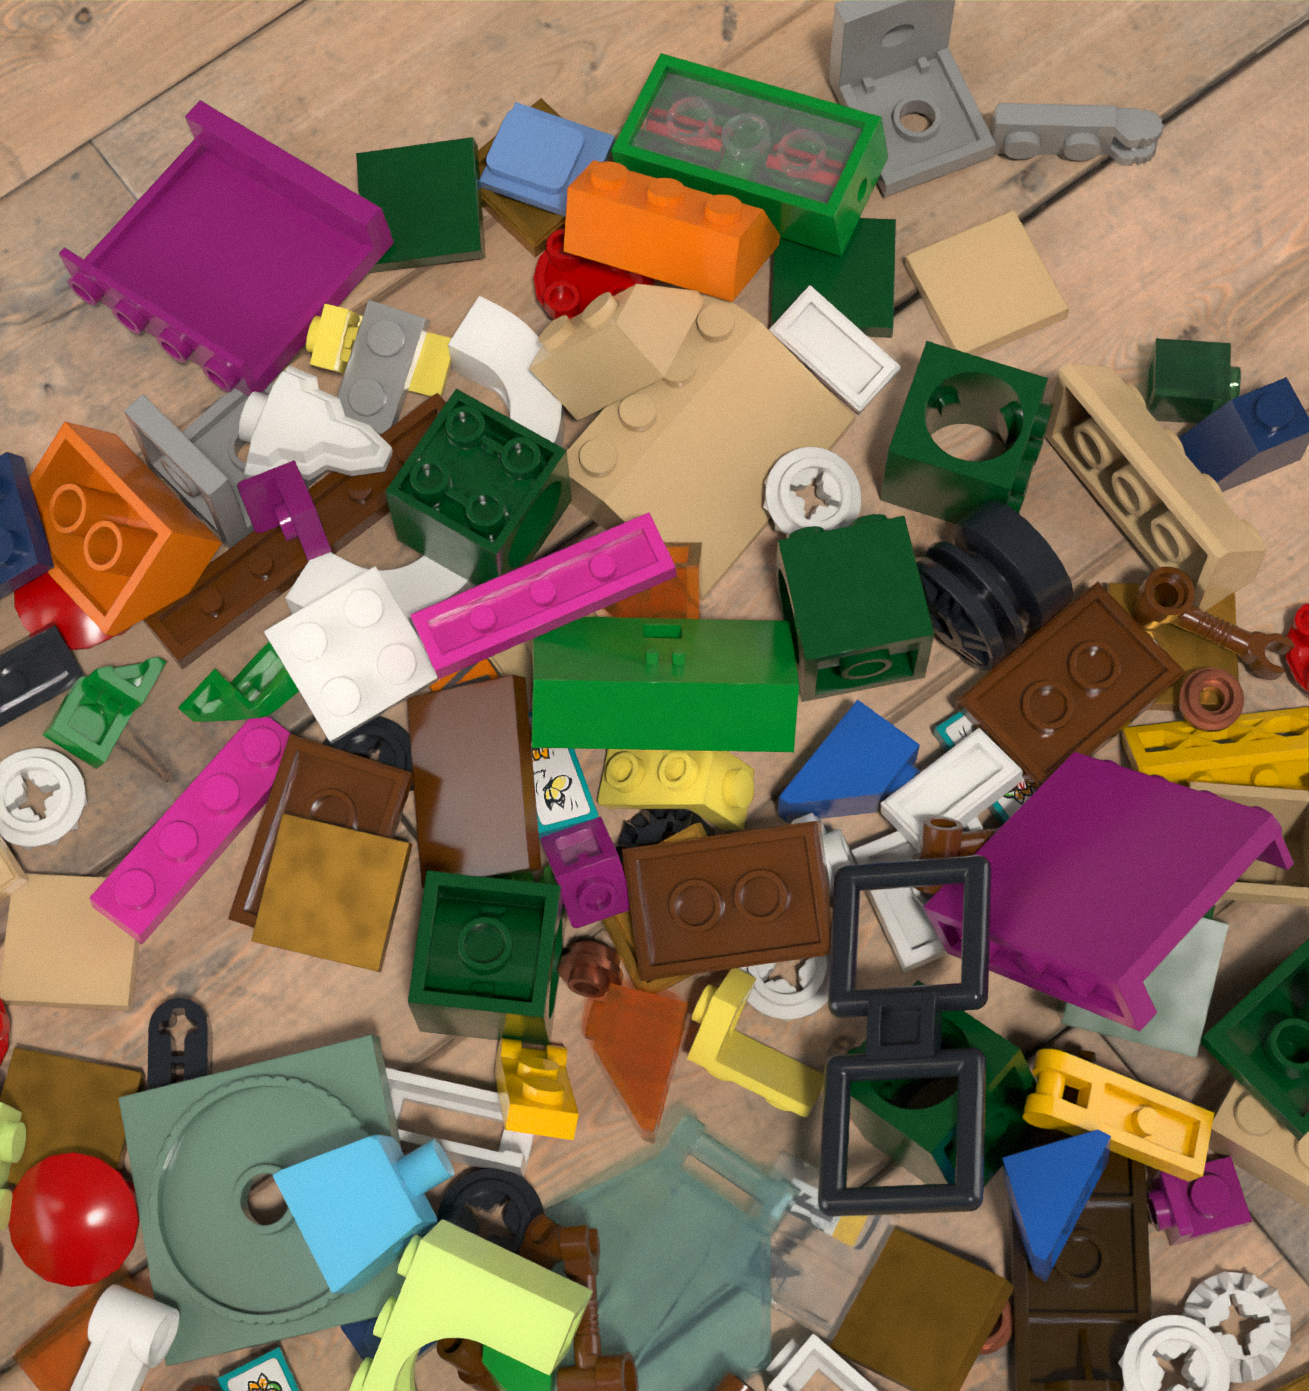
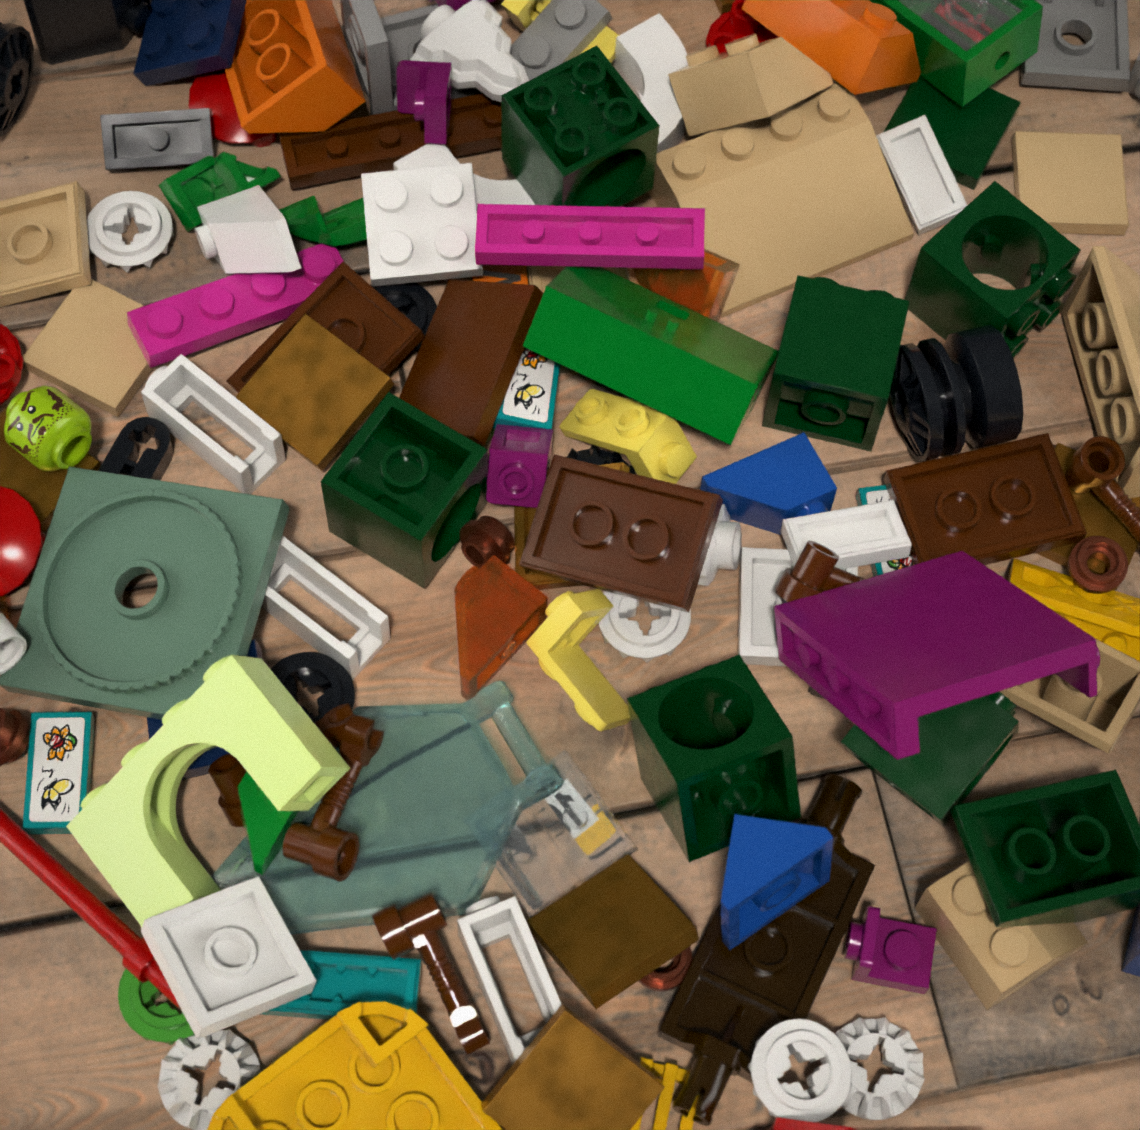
camera: 20 degrees right, 5 degrees down
(76, 1069) = (48, 428): none -> lime head
(171, 749) = (246, 234): none -> white slope
(178, 953) = (181, 383): none -> white window
(363, 1205) = (202, 614): medium azure torso -> none
(535, 1090) = (390, 602): yellow plate -> none
(835, 484) = (845, 248): white gear -> none
(906, 1039) = (703, 689): black bar -> none
(1139, 1118) = (863, 843): yellow plate -> none

